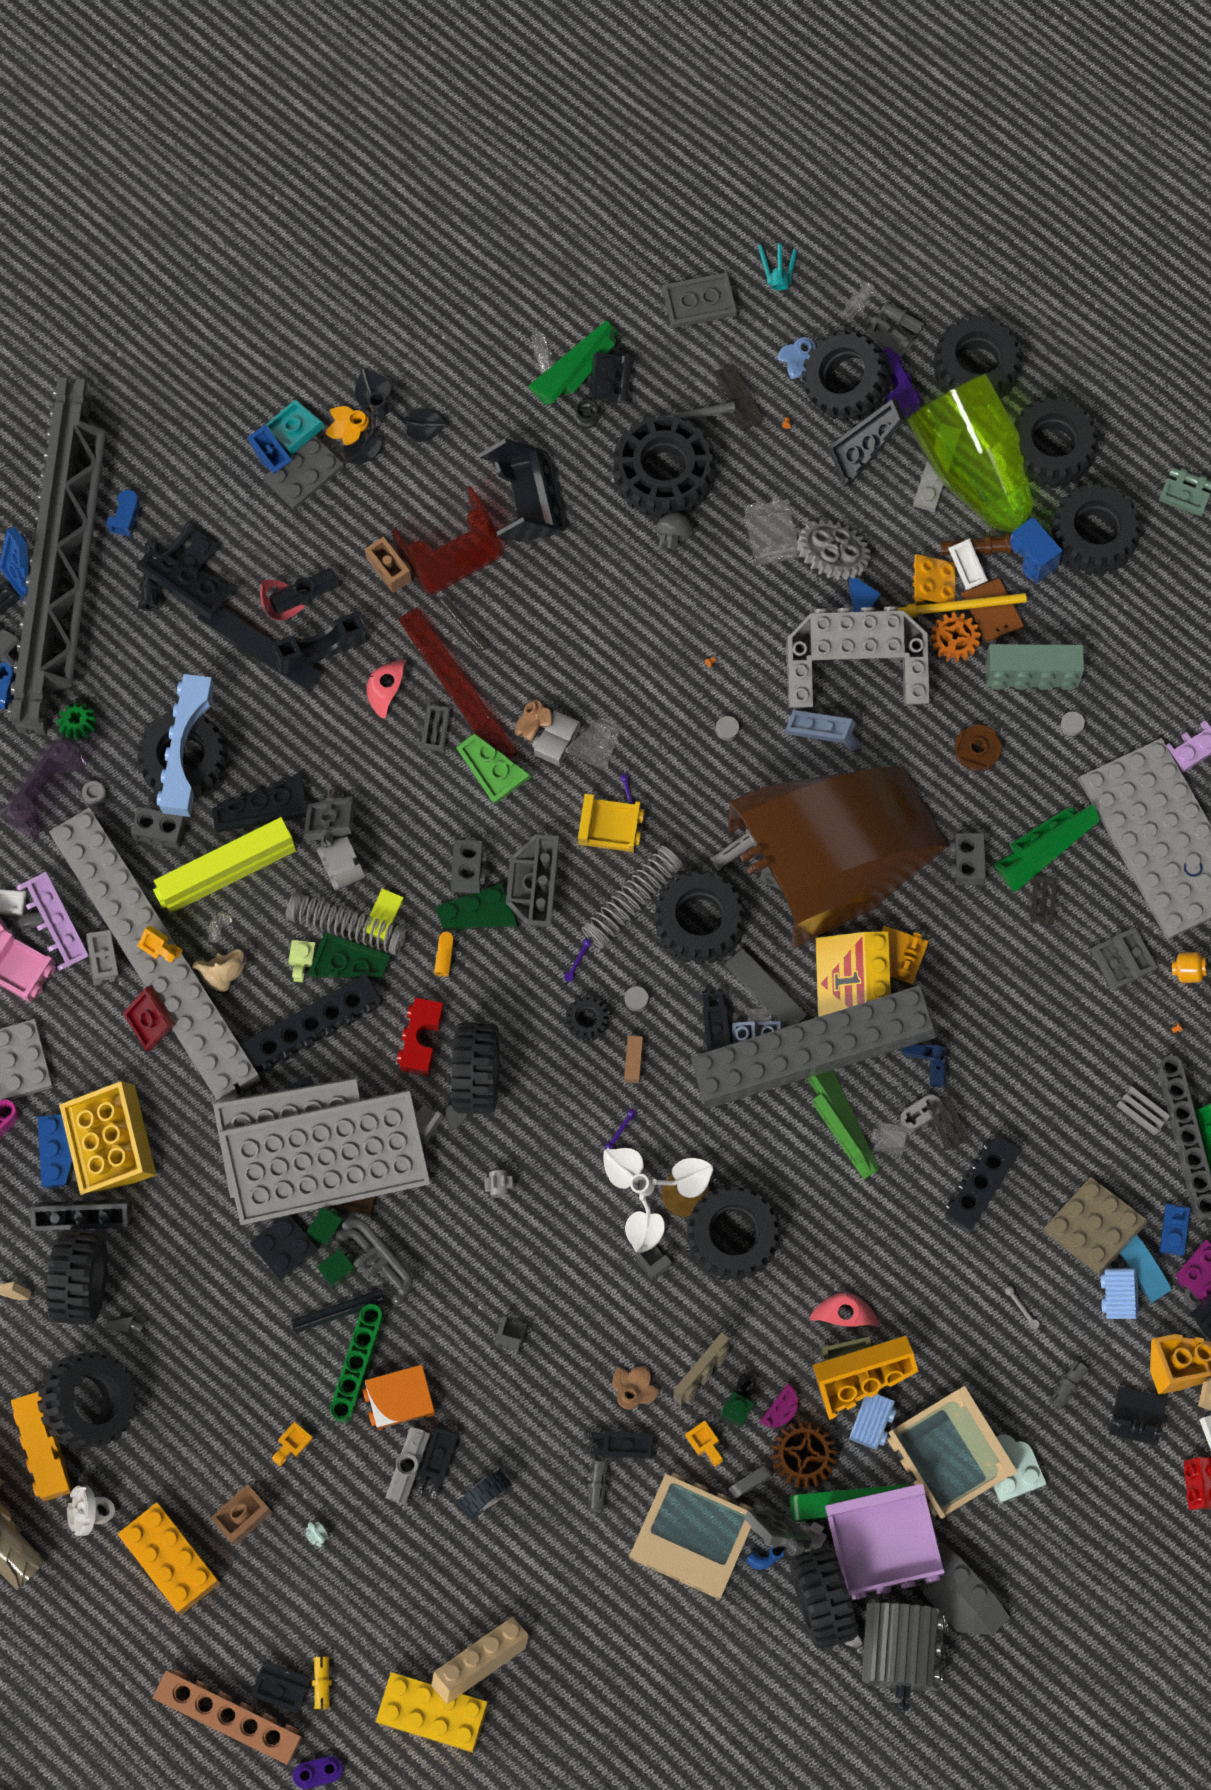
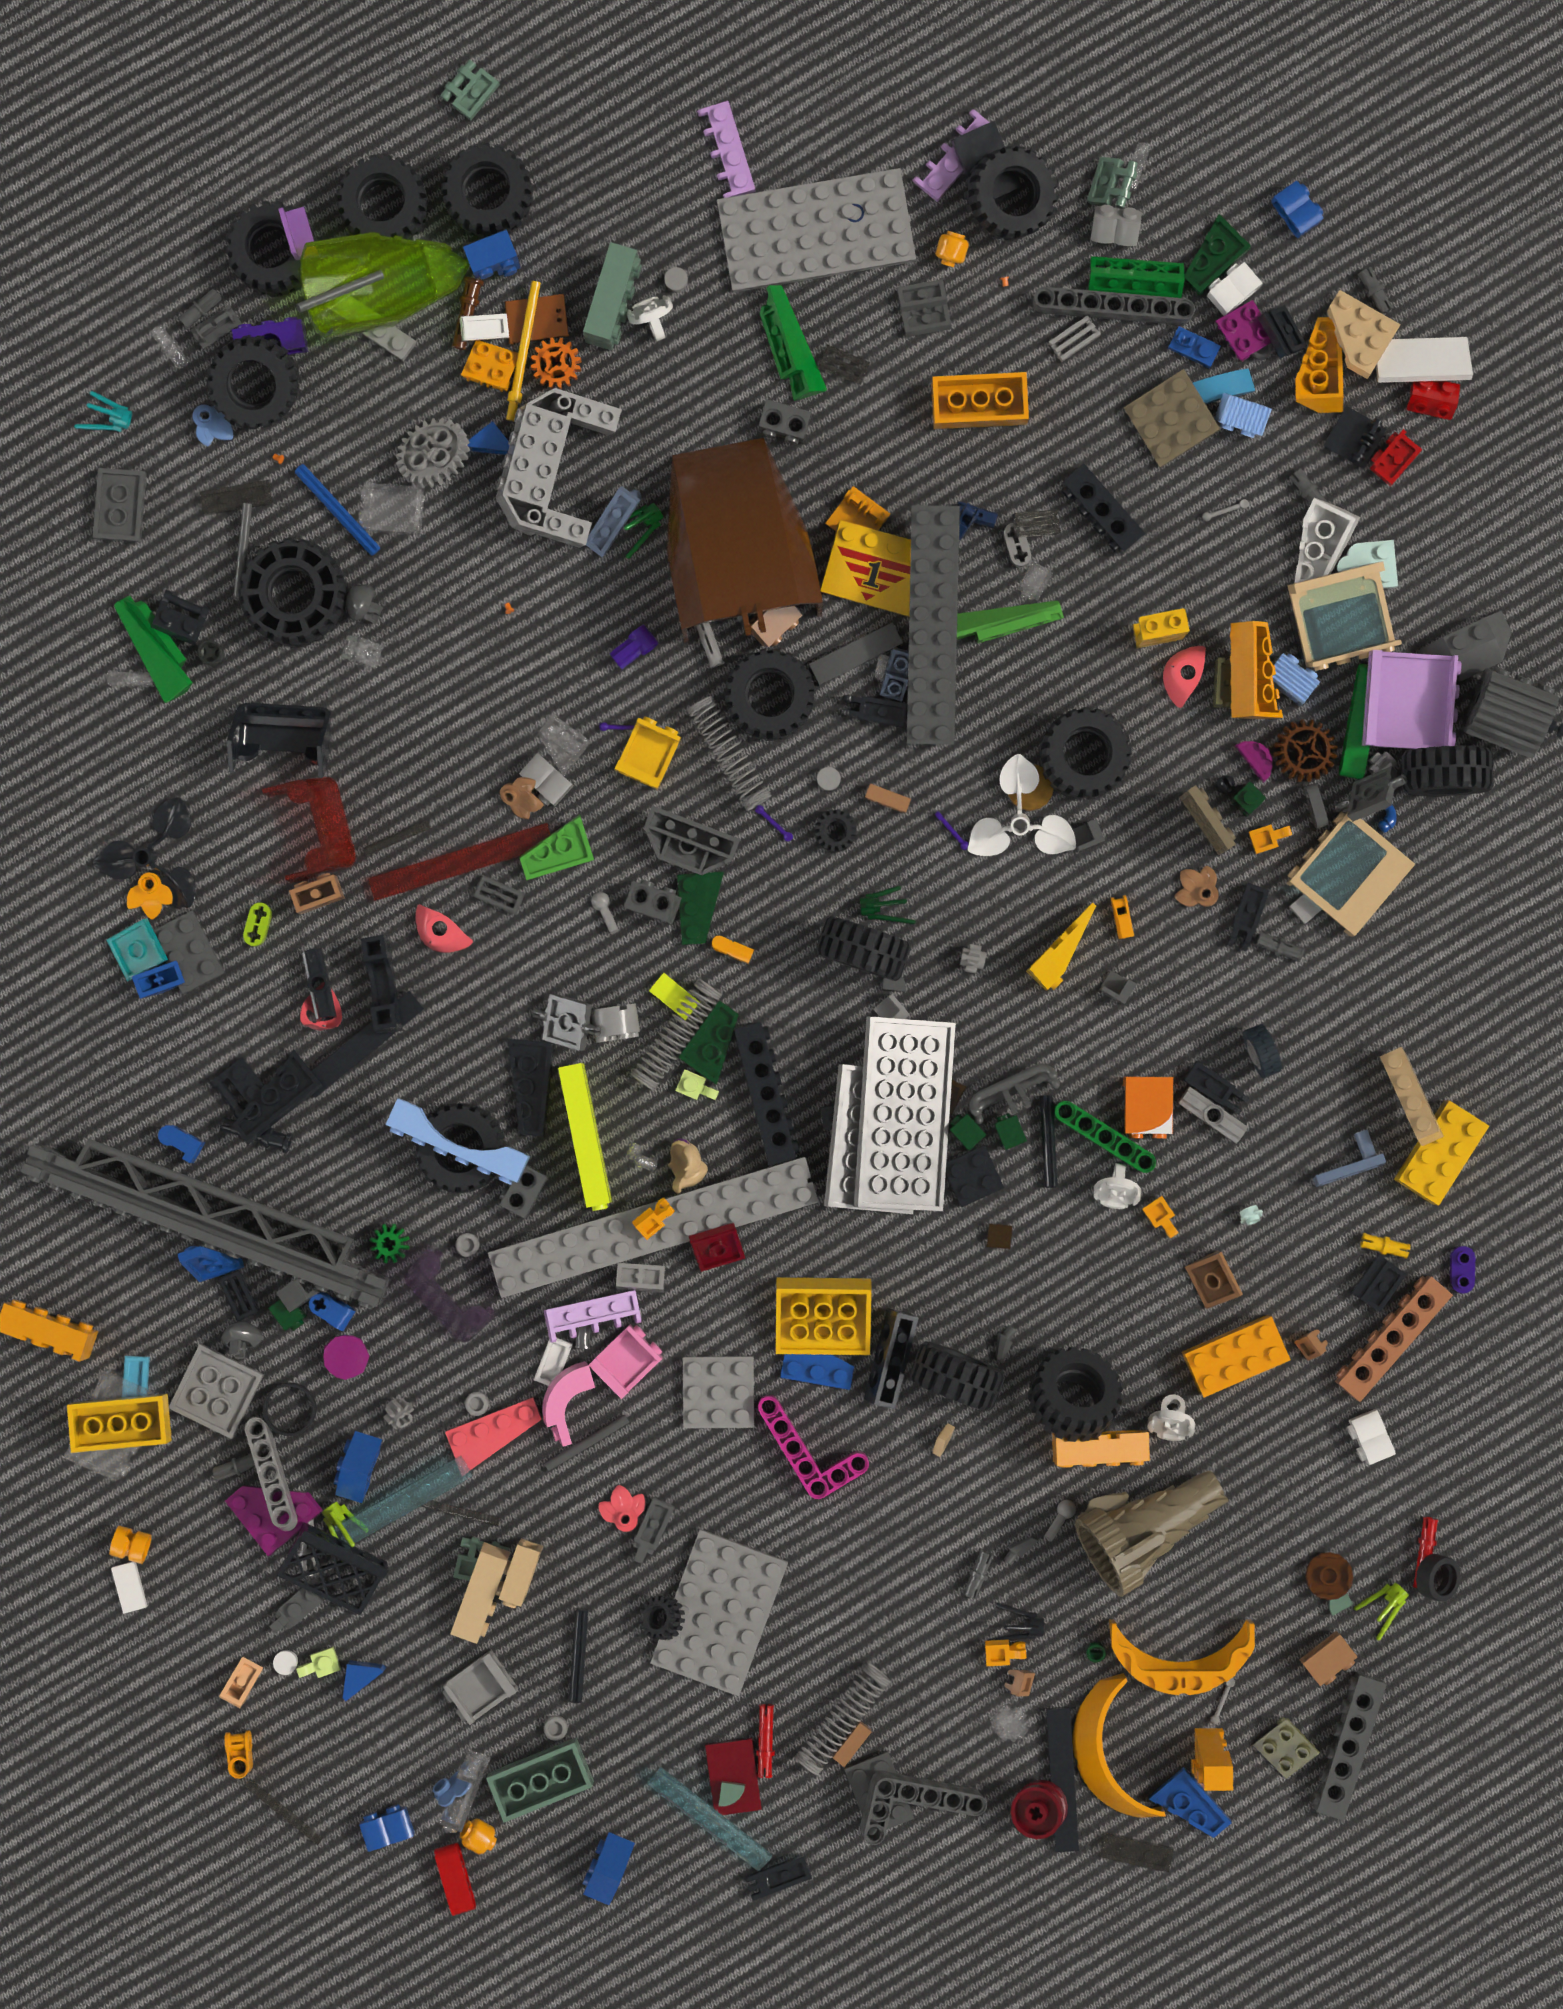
camera: 75 degrees left, 15 degrees up
(119, 1724) = (1371, 1437): none -> white brick
(198, 1633) = (1311, 1345): none -> medium nougat tile
(230, 1289) = (999, 1236): none -> dark brown tile
(304, 1389) = (1117, 1191): none -> white tile
(346, 524) = (252, 923): none -> lime beam
(402, 1640) = (1369, 1162): none -> sand blue piece
(423, 1016) = (789, 986): red arch -> none
(454, 823) = (600, 902): none -> light grey bar
(516, 1262) = (1054, 961): none -> yellow wedge
(524, 1073) = (871, 906): none -> dark green plant
(578, 1322) = (1123, 921): none -> light orange bar
(627, 541) = (362, 651): none -> clear brick
(642, 1501) = (1304, 908): none -> light grey tile
(712, 785) = (638, 643): none -> dark purple piece
(727, 728) = (582, 612): light grey tile -> none
(754, 485) = (337, 509): none -> blue axle
(770, 900) = (776, 624): none -> medium nougat brick
(838, 761) = (649, 516): none -> green plant
(862, 443) = (329, 387): black wing -> none
(880, 1270) = (1161, 628): none -> yellow panel
(956, 426) = (340, 291): none -> dark grey bar
(971, 736) = (671, 365): reddish brown plate -> none
(998, 368) = (296, 229): none -> medium lavender panel
(1024, 1412) = (1323, 539): none -> white wedge
(1031, 705) = (650, 311): none -> white tile
(1049, 1034) = (980, 400): none -> light orange brick
(1130, 1461) = (1395, 458): none -> red bracket

